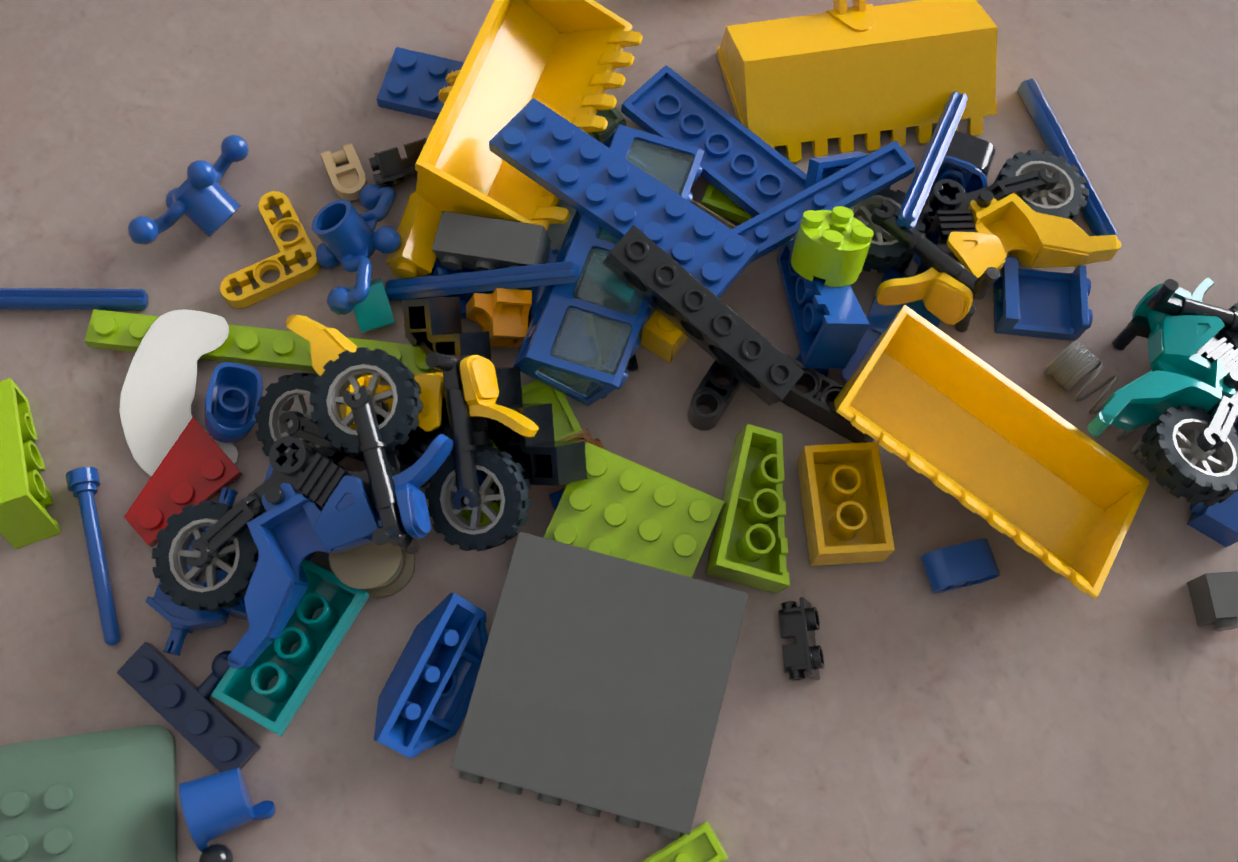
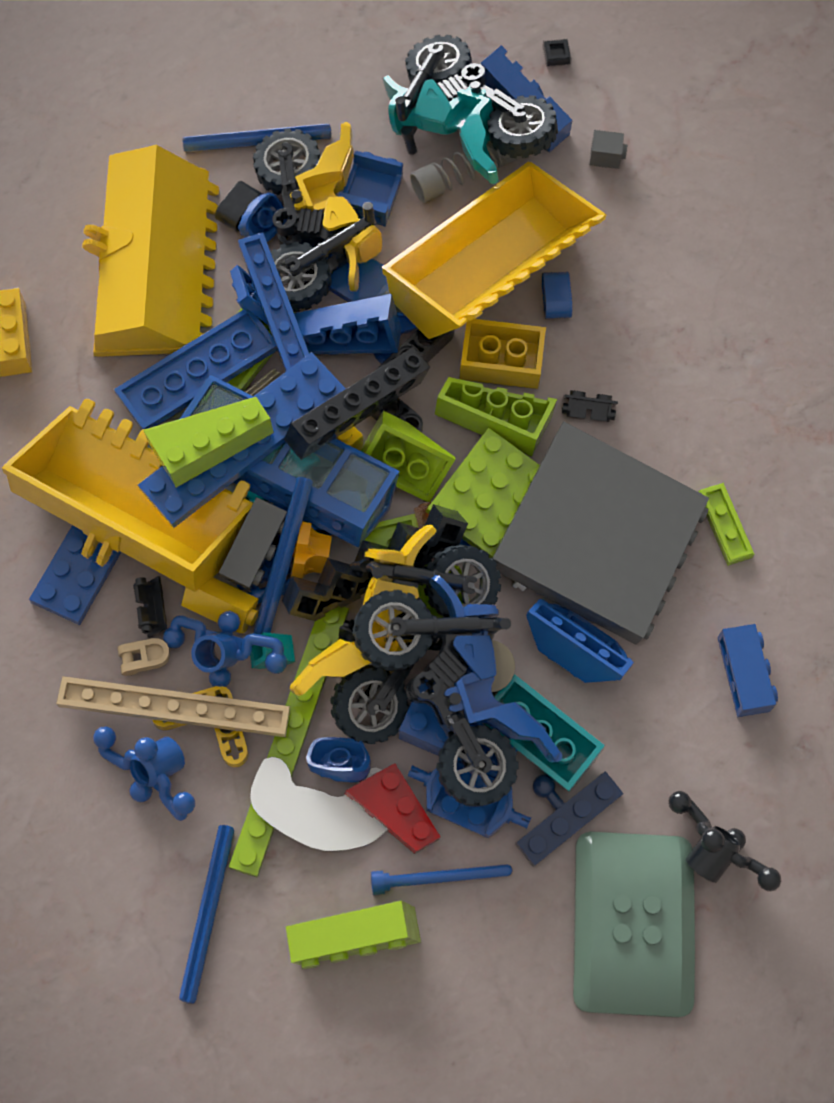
camera: 75 degrees left, 0 degrees up
(219, 805) = (644, 796): blue hat -> none
(277, 213) = (173, 706): none -> tan plate
(597, 145) = (208, 438): none -> lime wedge
(656, 402) = (417, 458): none -> lime slope
(831, 246) = (318, 305): lime brick -> none
(931, 161) = (254, 221): axle -> none

